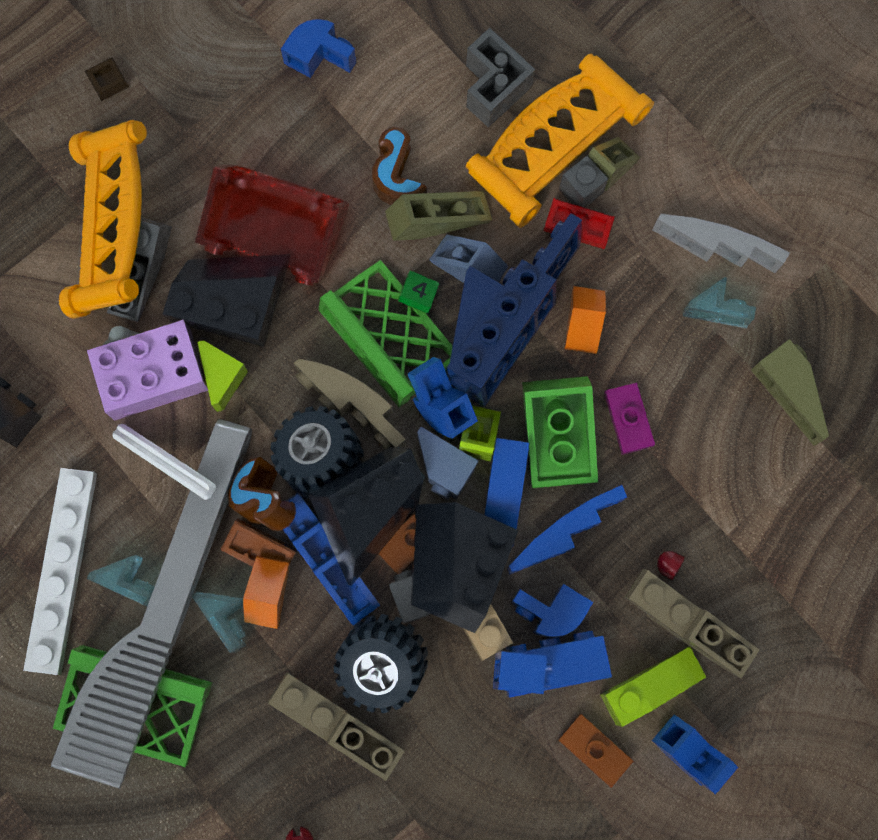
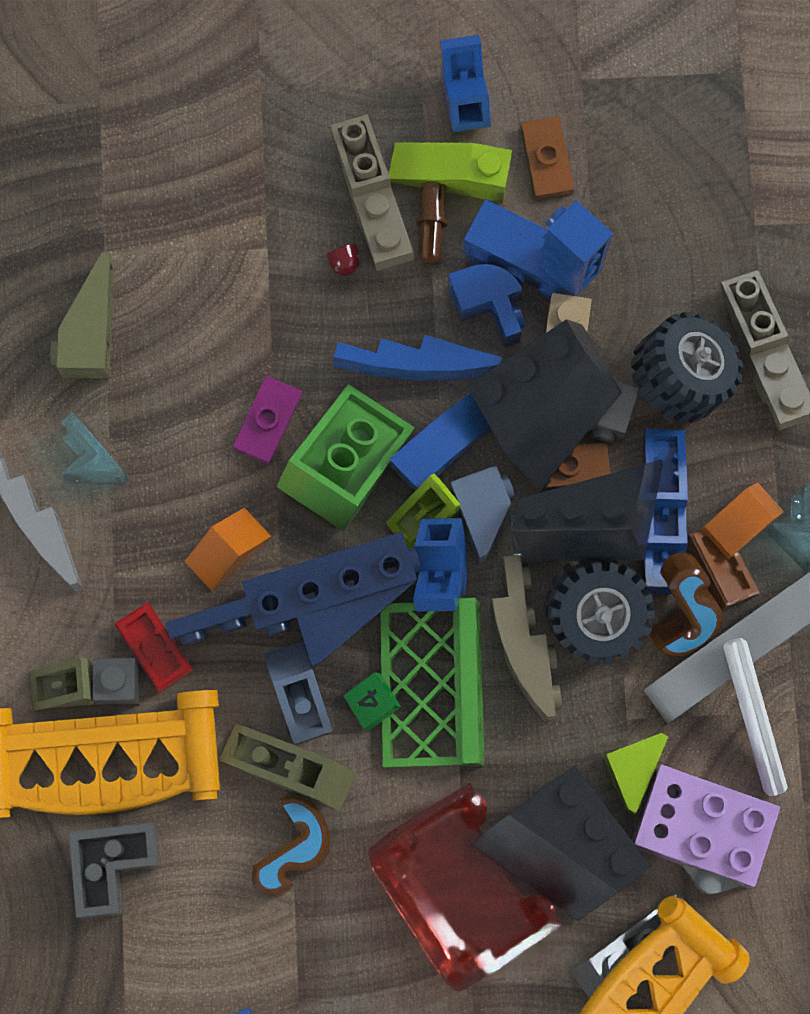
camera: 140 degrees left, 0 degrees up
(634, 636) = (431, 222): none -> reddish brown axle

